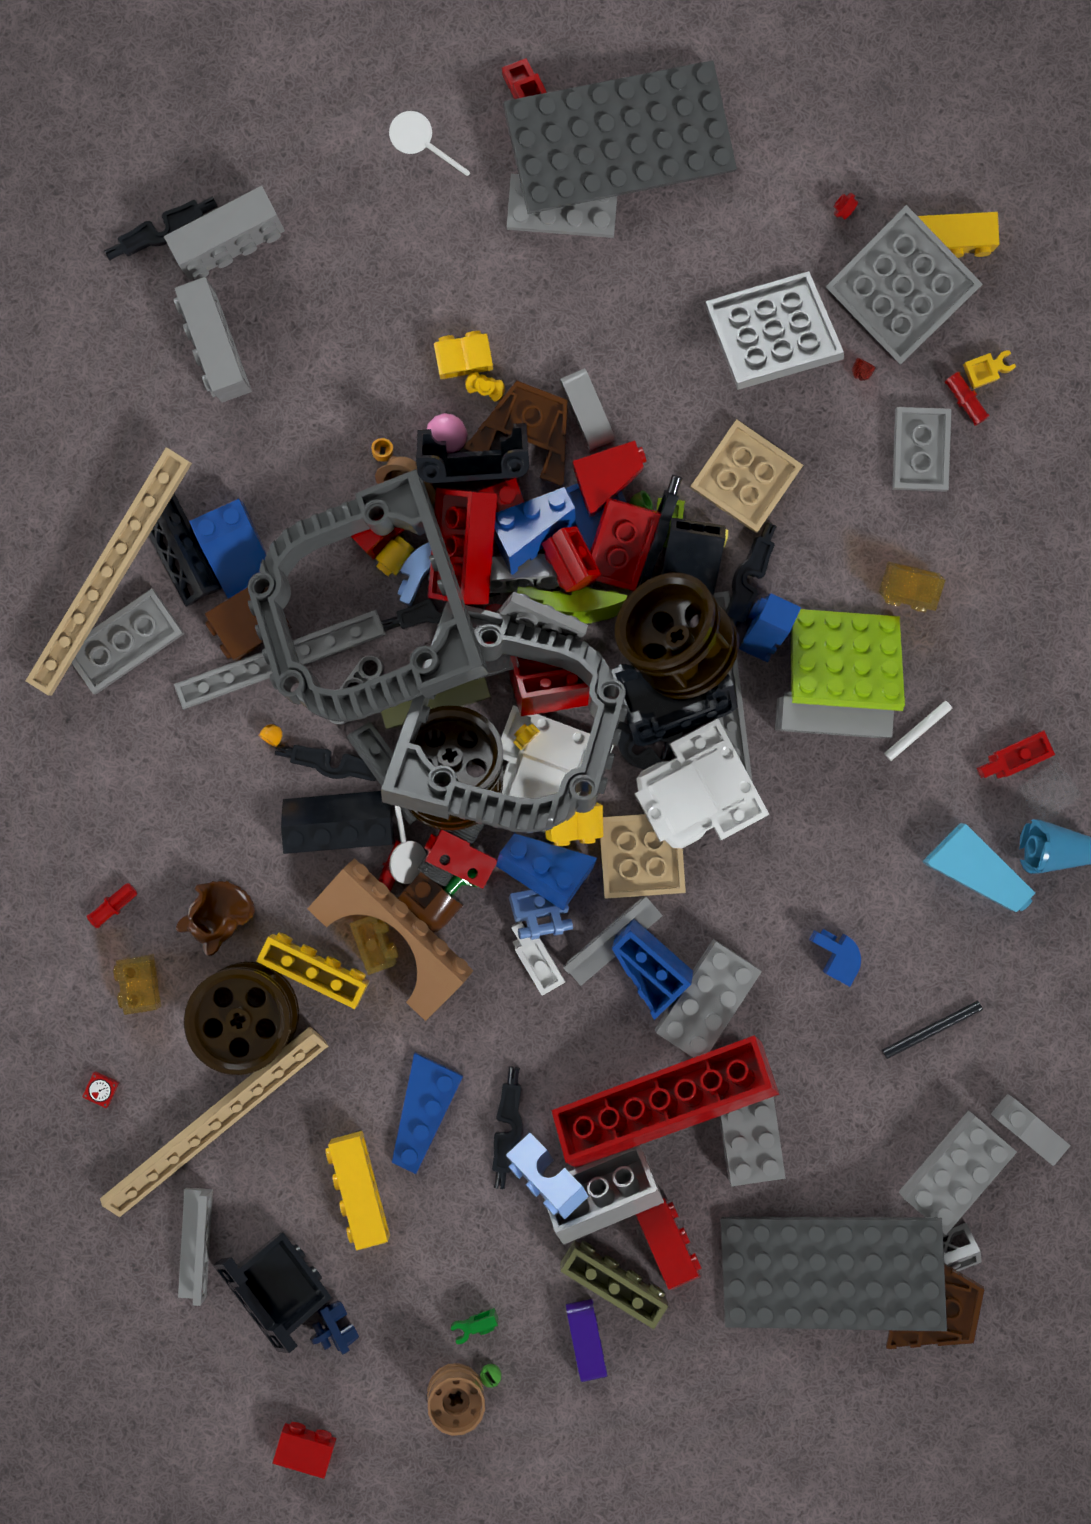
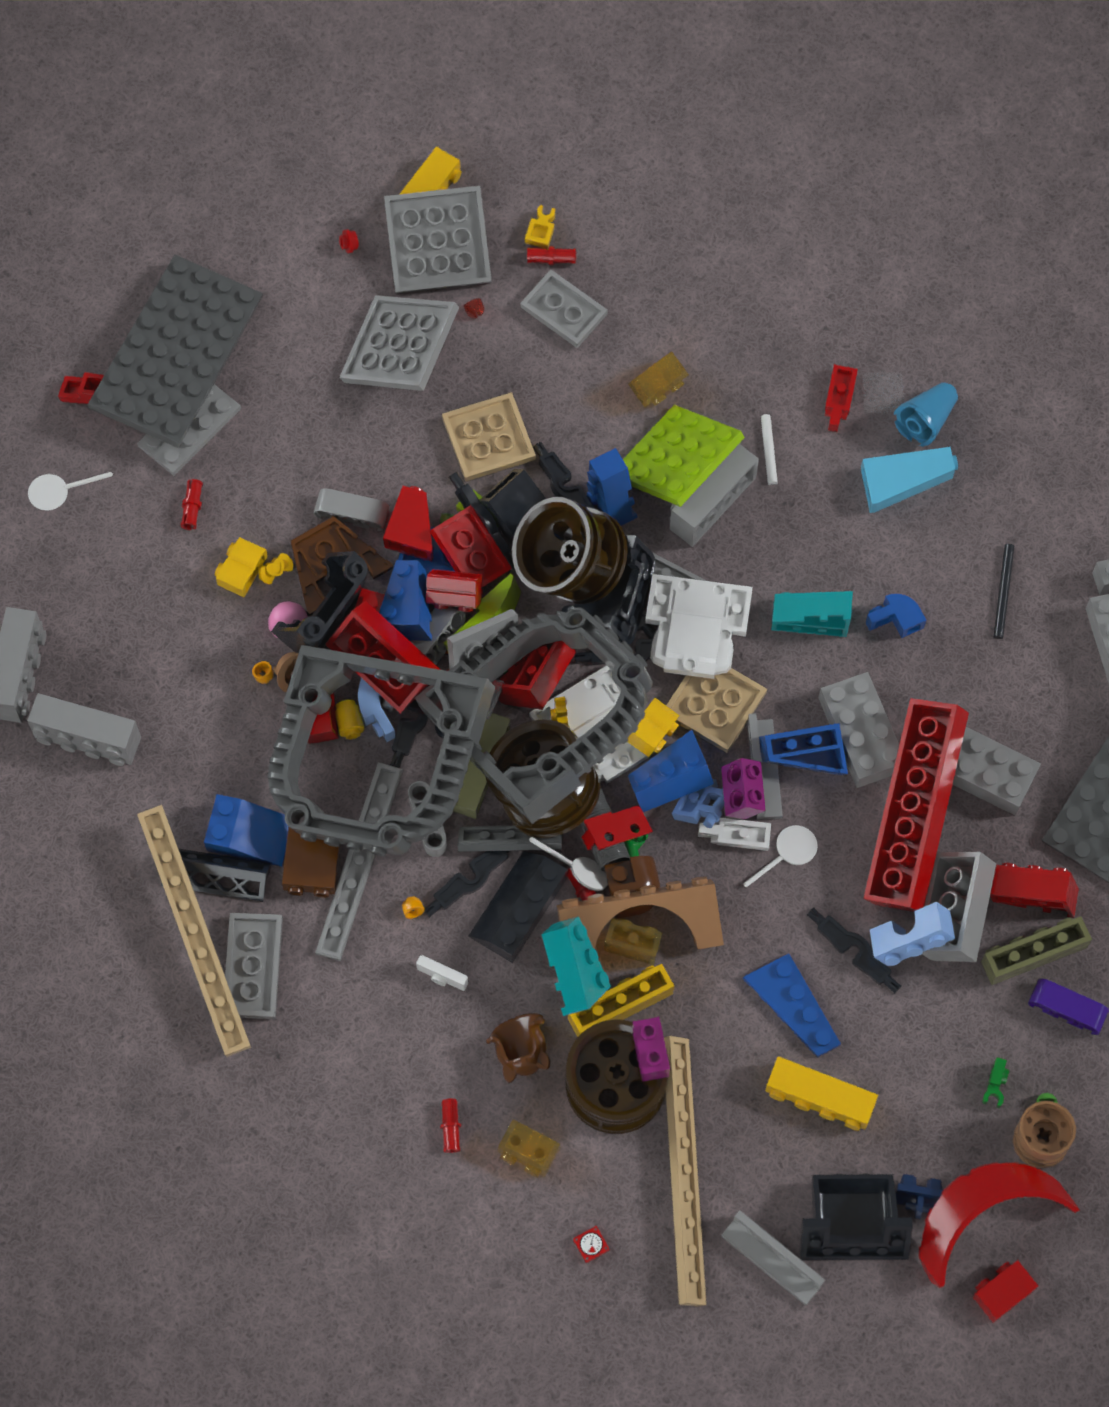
camera: 55 degrees left, 20 degrees down
(230, 803) = (442, 974): none -> white plate
(268, 1042) = (651, 1049): none -> magenta brick
(306, 918) = (576, 965): none -> teal wedge
(362, 1383) = (971, 1196): none -> red windscreen
(489, 266) = (191, 504): none -> red pin
(563, 1013) = (794, 845): none -> white piece
(572, 942) = (743, 788): none -> magenta brick
(785, 882) = (813, 612): none -> teal wedge

